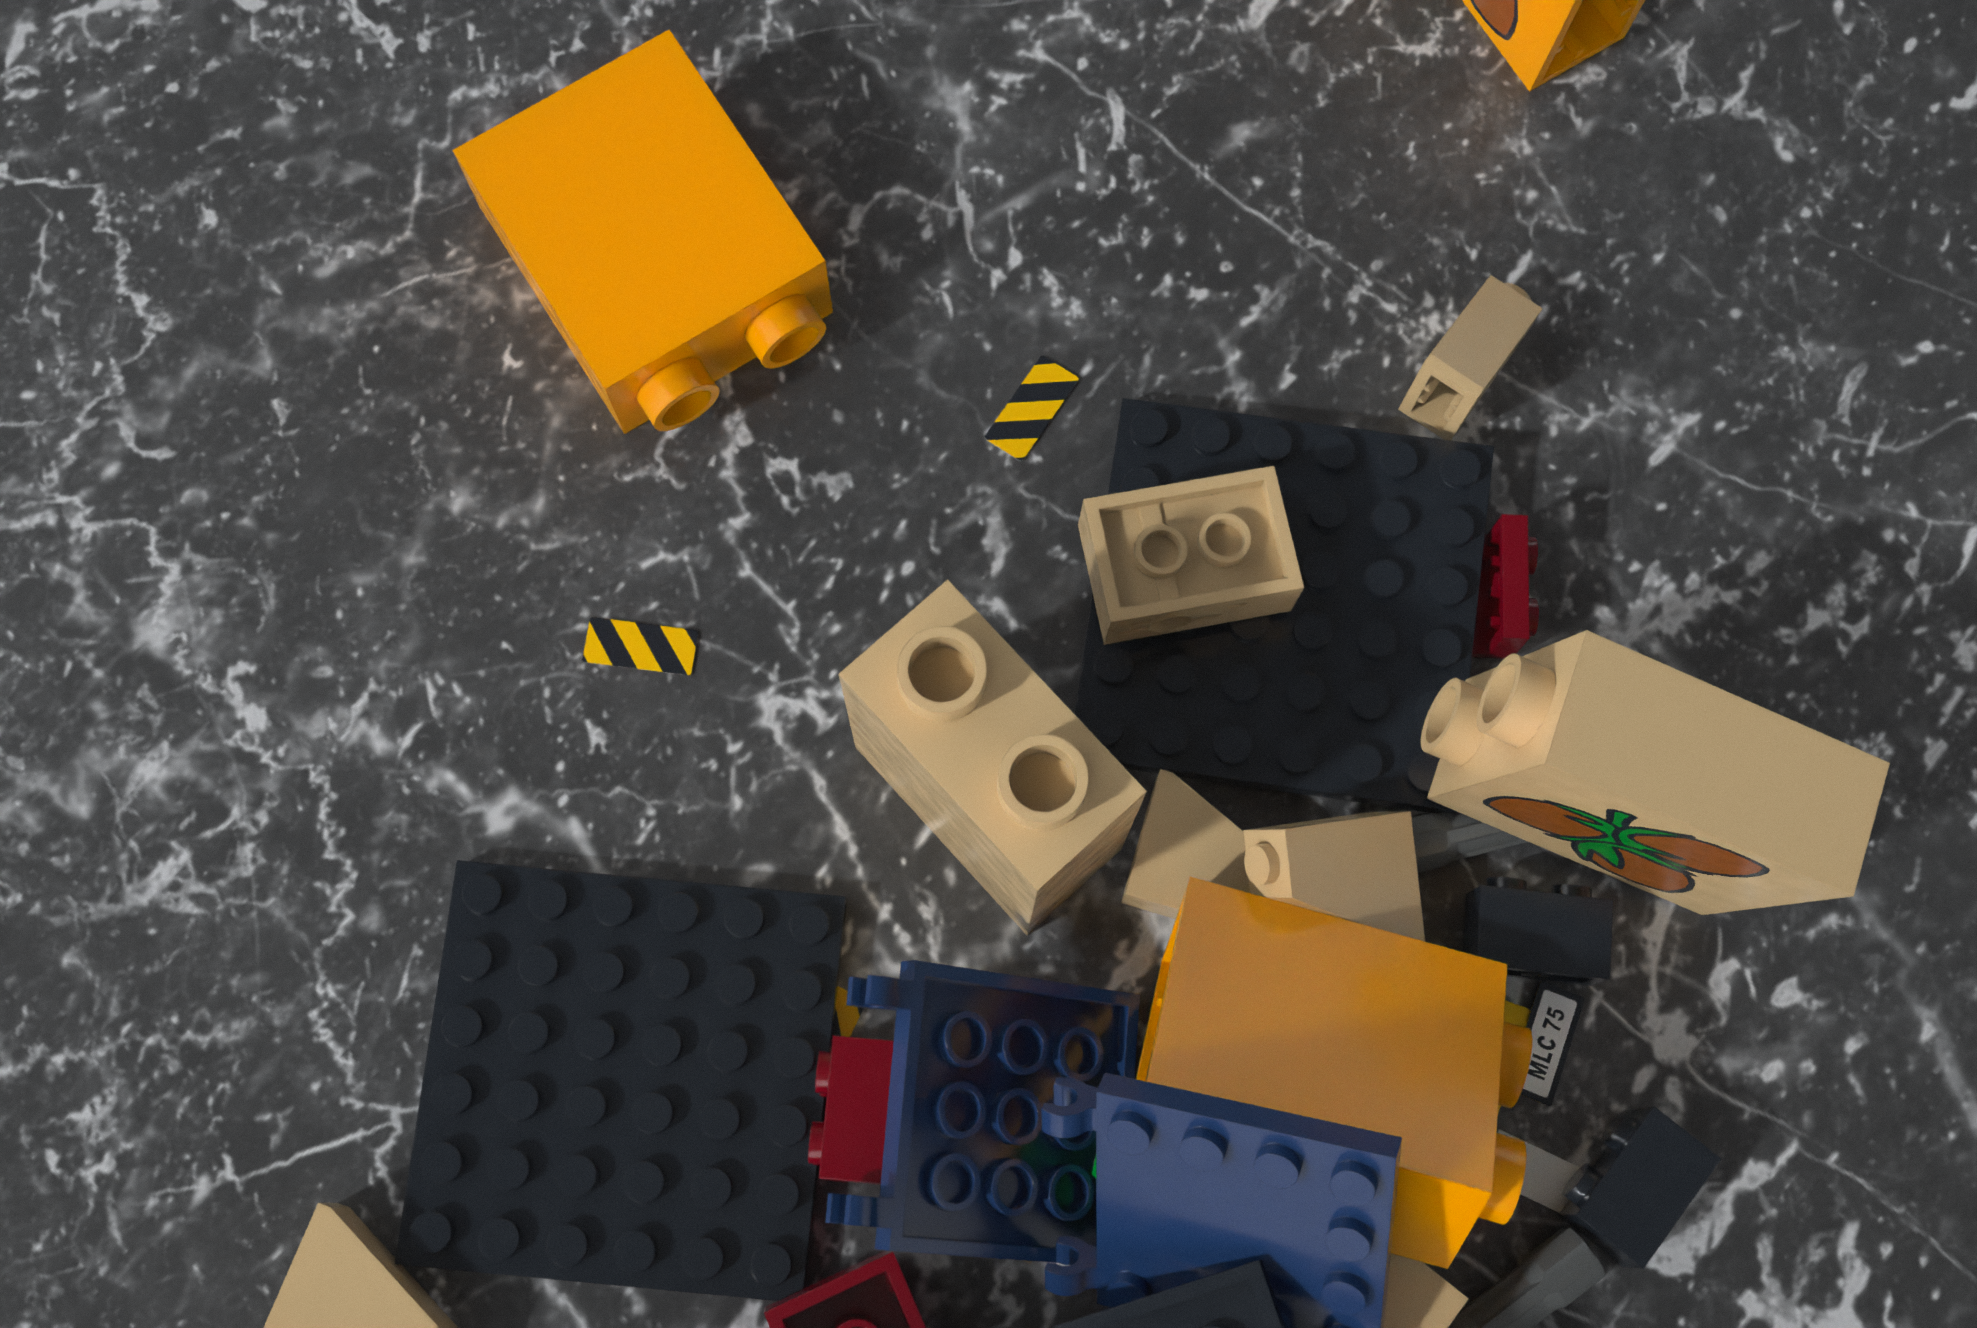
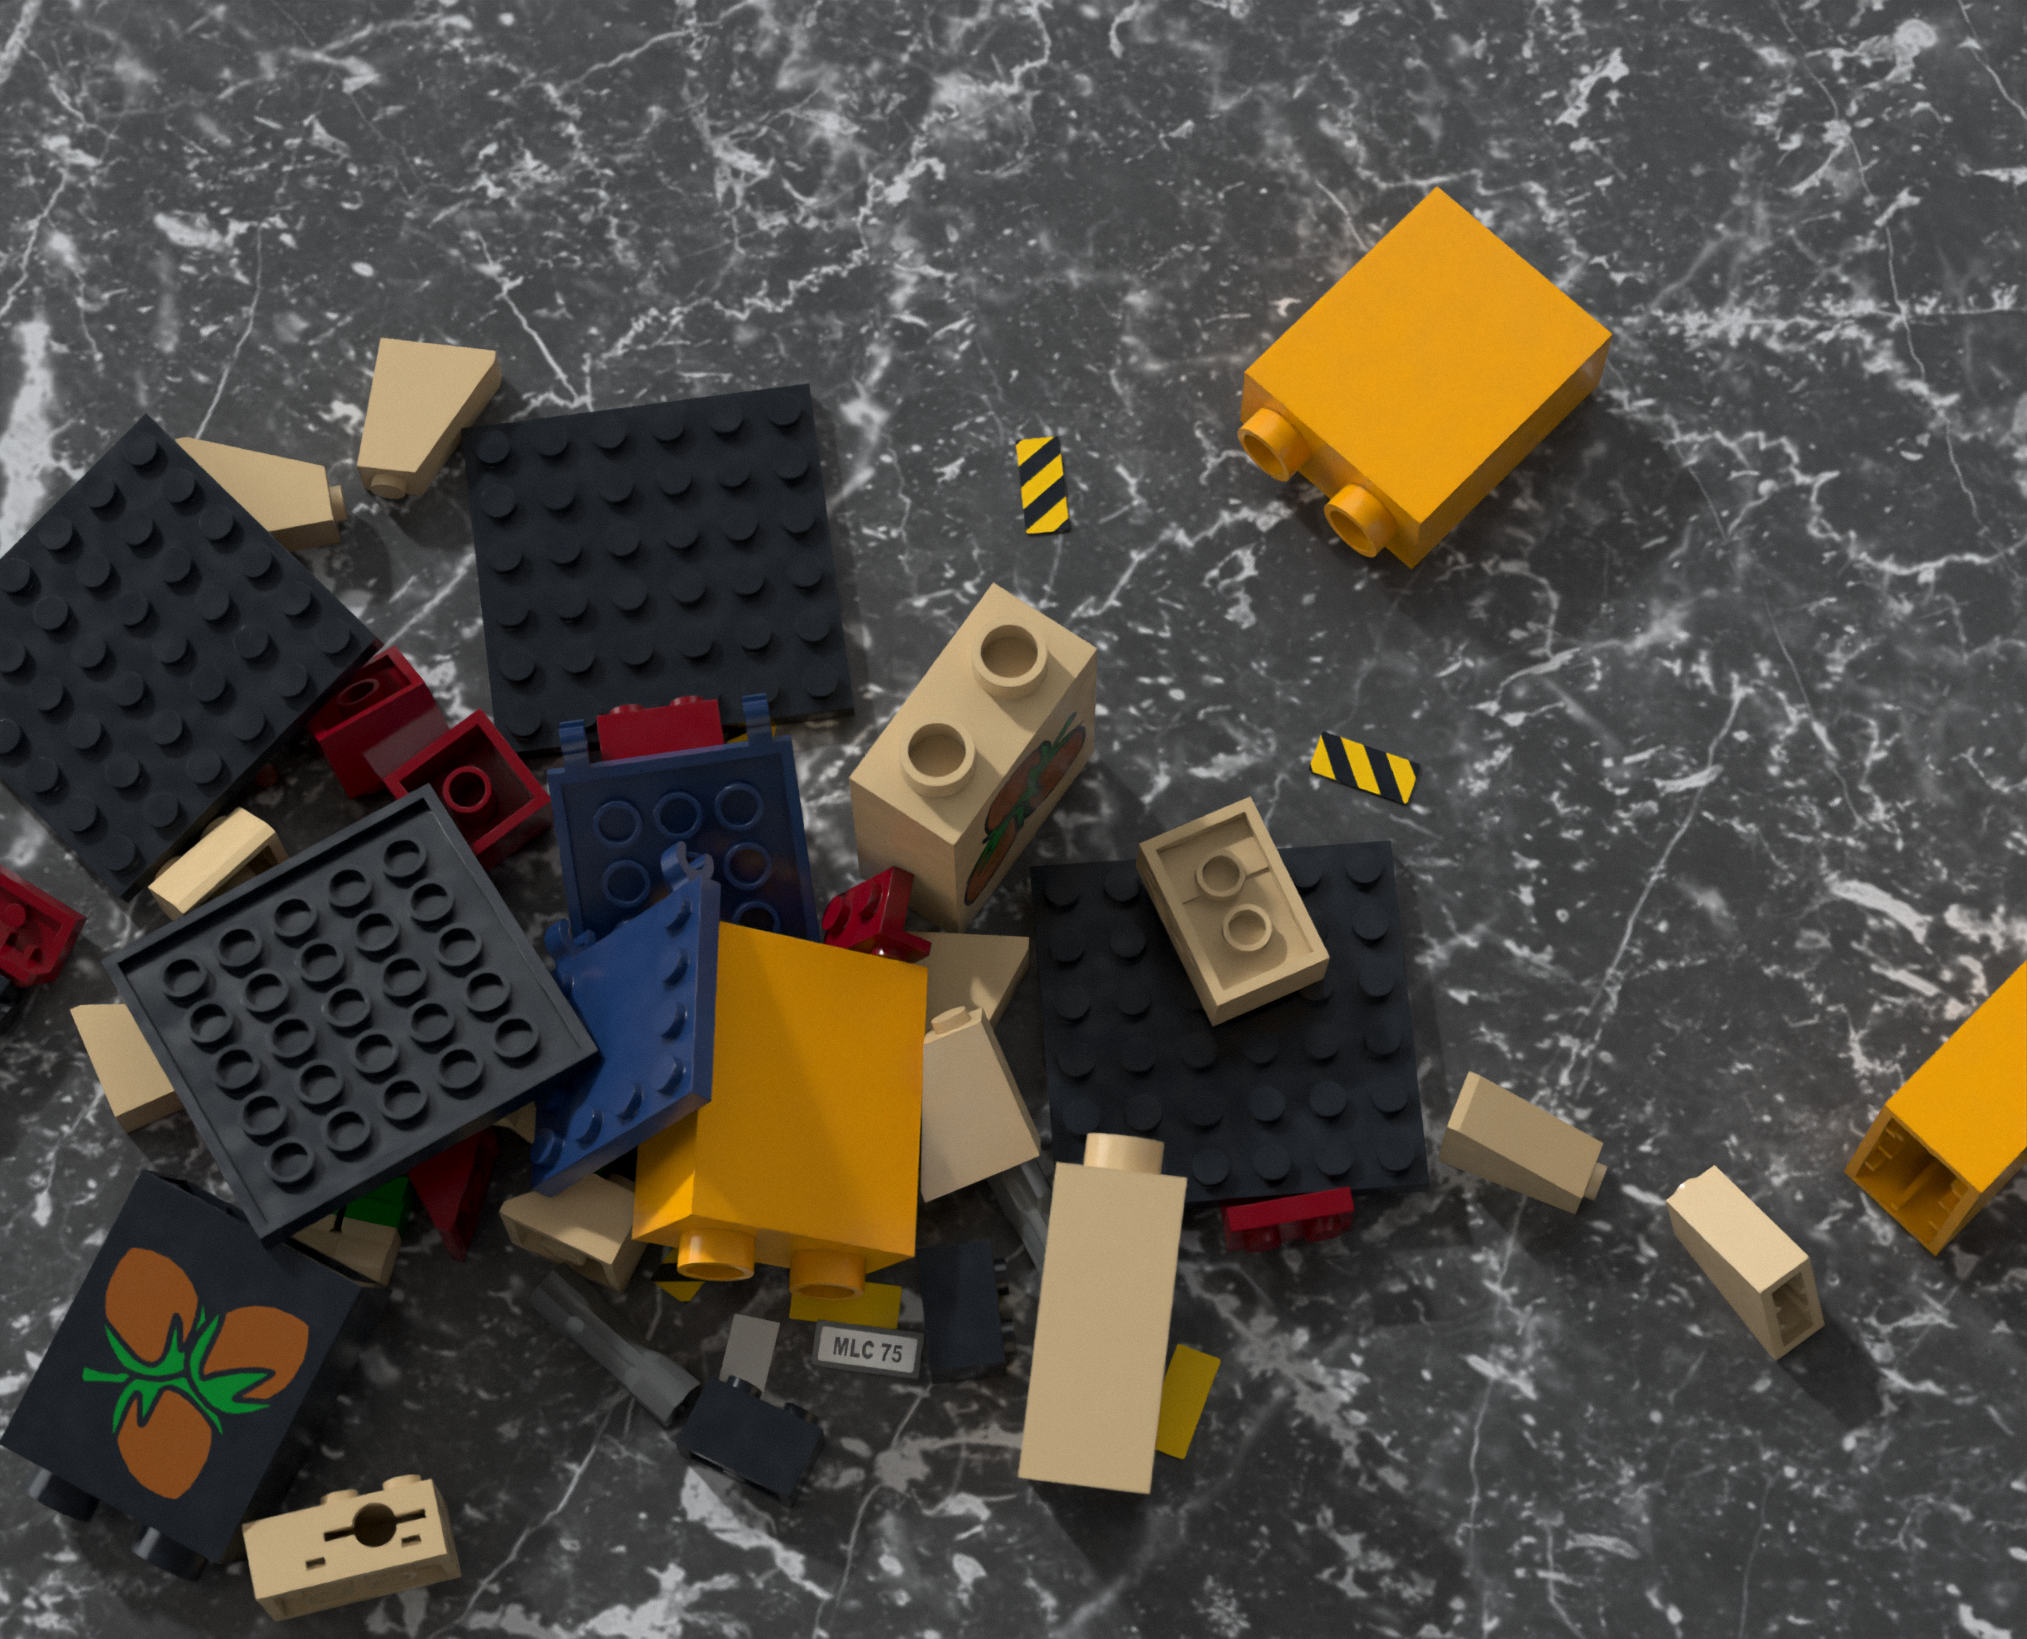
camera: 80 degrees right, 5 degrees down
(1118, 929) = (873, 918): none -> dark red bracket
(1616, 184) = (1748, 1260): none -> tan slope

